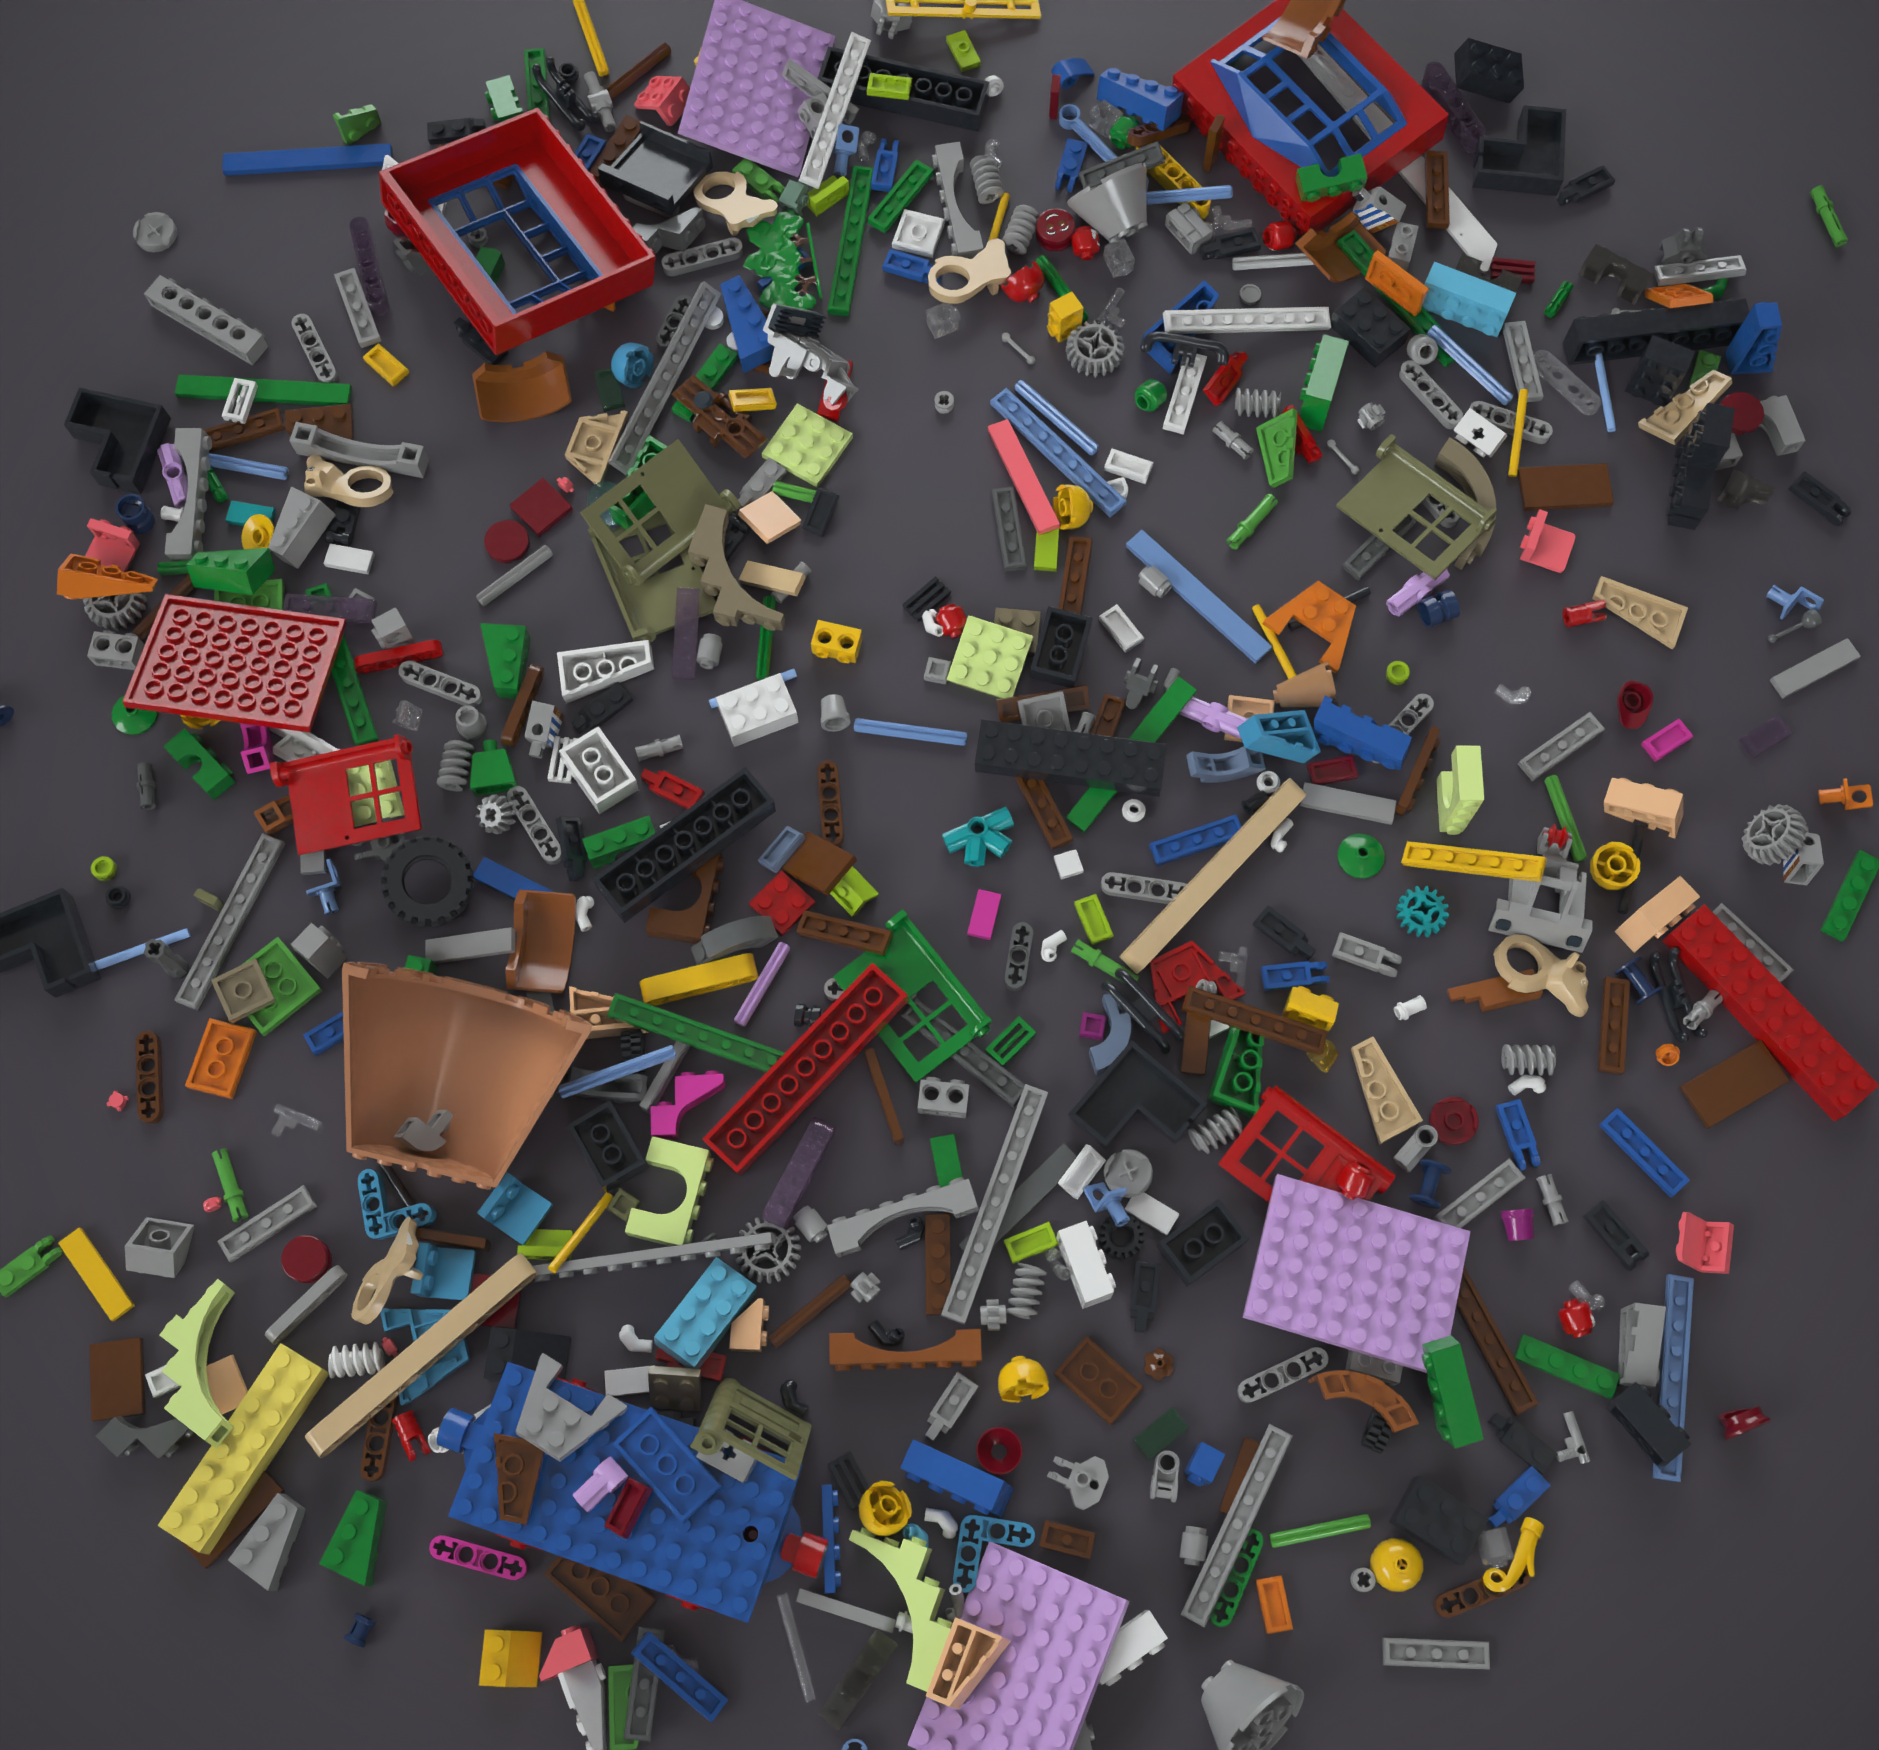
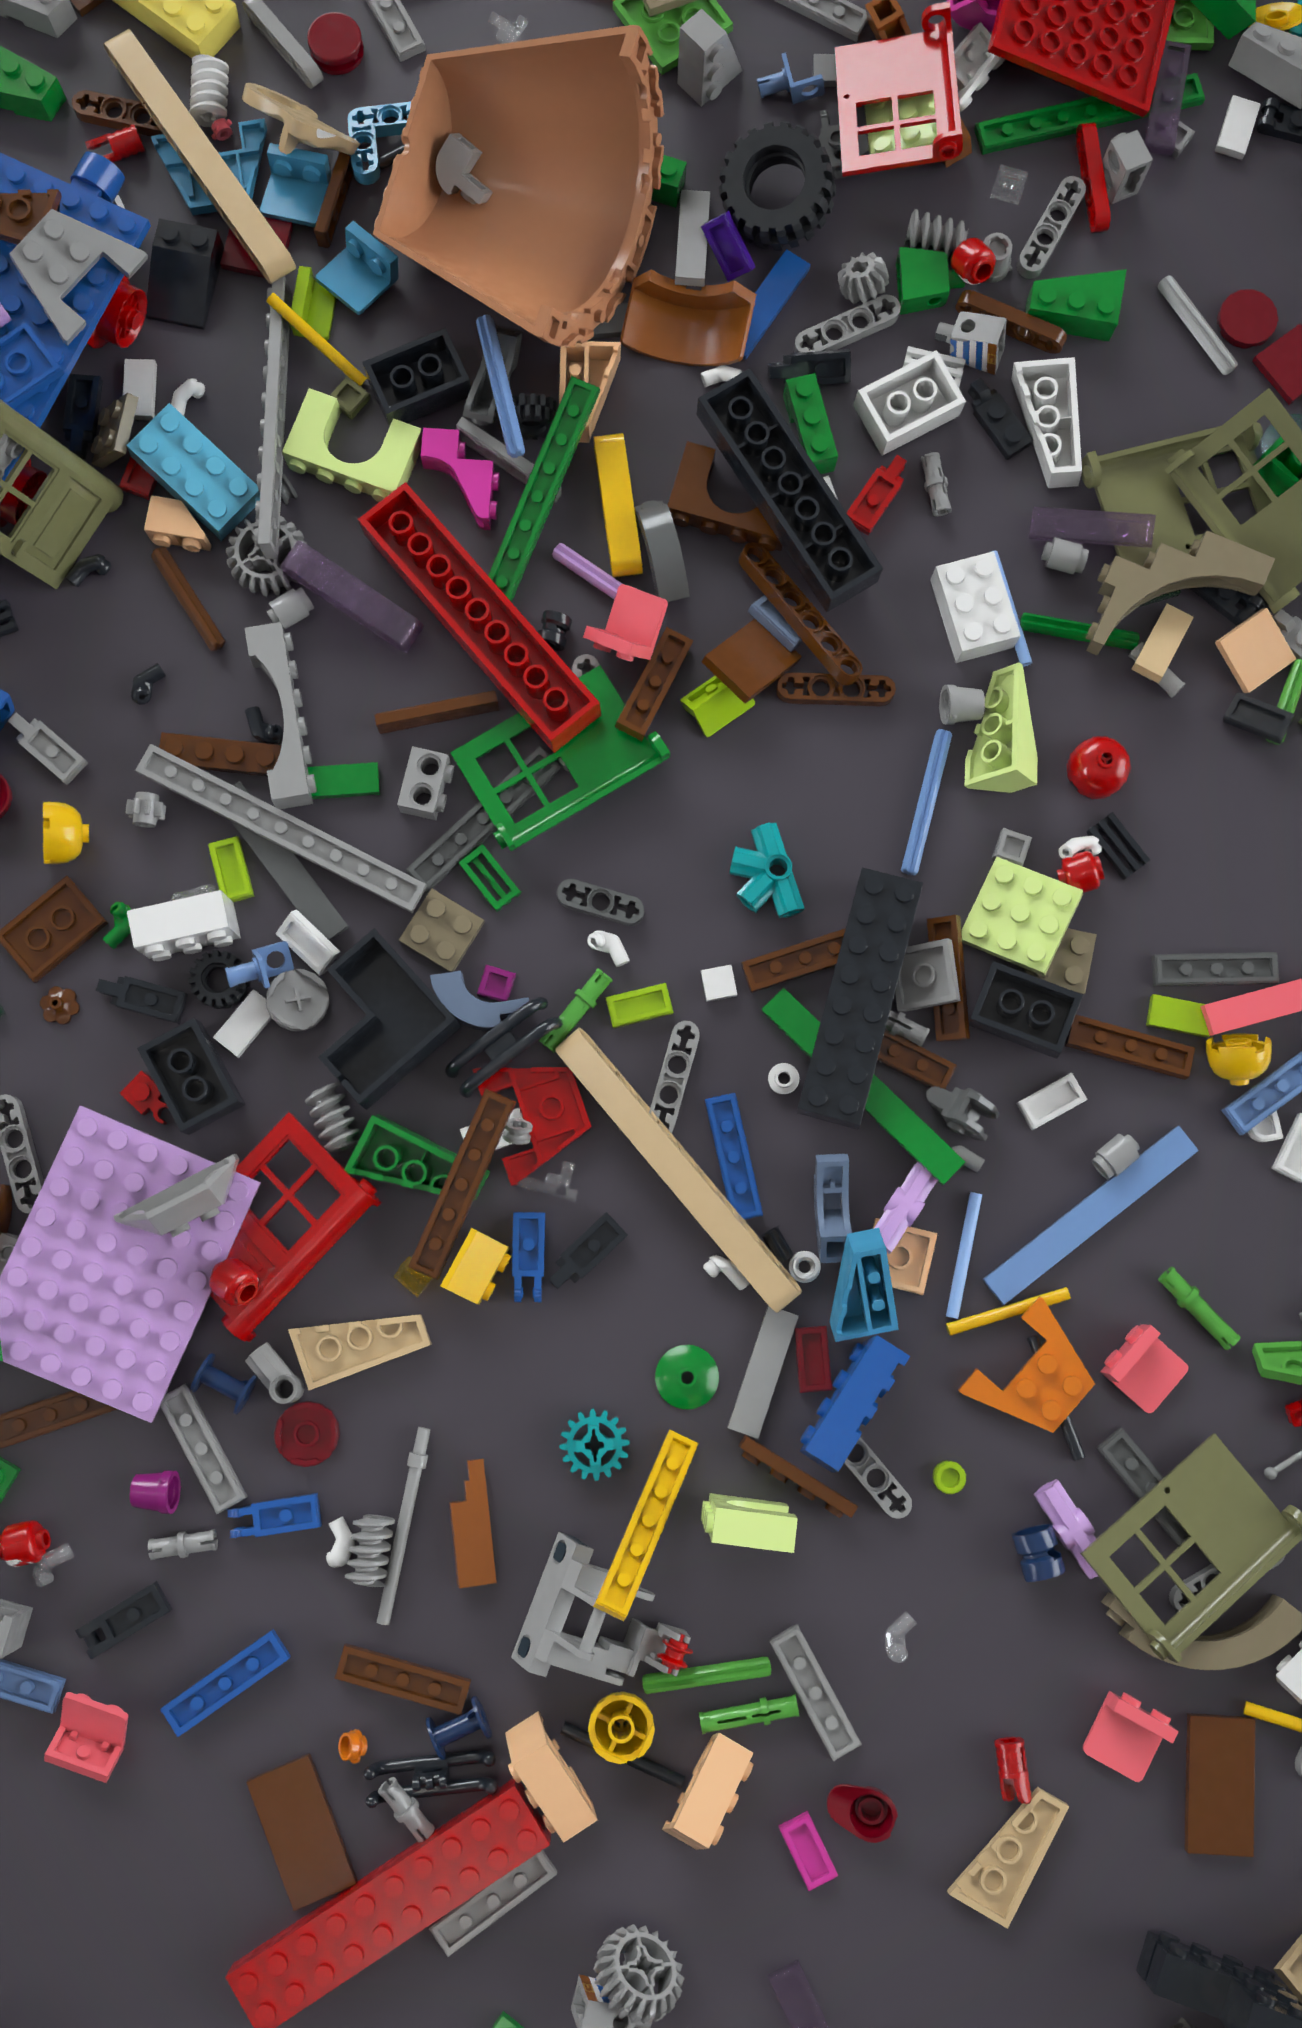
camera: 90 degrees right, 10 degrees up
(477, 916) = (728, 246): none -> dark purple tile
(481, 731) = (973, 261): none -> red head
(772, 831) = (803, 611): none -> reddish brown beam
(782, 902) = (708, 615): red plate -> none
(800, 954) = (631, 624): none -> coral bracket
(839, 636) = (1068, 721): yellow brick -> none
(859, 681) = (1005, 741): none -> yellowish green wedge
(865, 1287) = (202, 663): light grey gear -> none
(870, 614) = (1098, 767): none -> red cylinder
(961, 1348) = (129, 639): dark orange arch -> none
(984, 914) = (662, 866): dark pink tile -> none
(1026, 1291) = (167, 855): light grey piece -> none
(1057, 1072) = (441, 931): none -> dark tan plate
(1087, 1321) = (121, 925): none -> green arm
(1195, 1044) = (444, 1109): reddish brown tile -> none
(1220, 1282) = (145, 1096): none -> red plate
(1239, 676) = (964, 1255): none -> light blue piece
(1299, 552) = (1144, 1368): none -> coral bracket
(1304, 1220) = (183, 1201): none -> light grey wedge
(1306, 688) = (932, 1342): medium nougat cone -> none
(1365, 954) = (546, 1354): light grey hinge -> none
(1408, 1008) = (464, 1402): white pin -> none
(1459, 1037) = (417, 1461): none -> light grey bar
(1561, 977) = (478, 1618): tan animal -> none
(1585, 785) = (749, 1714): none -> bright green pin

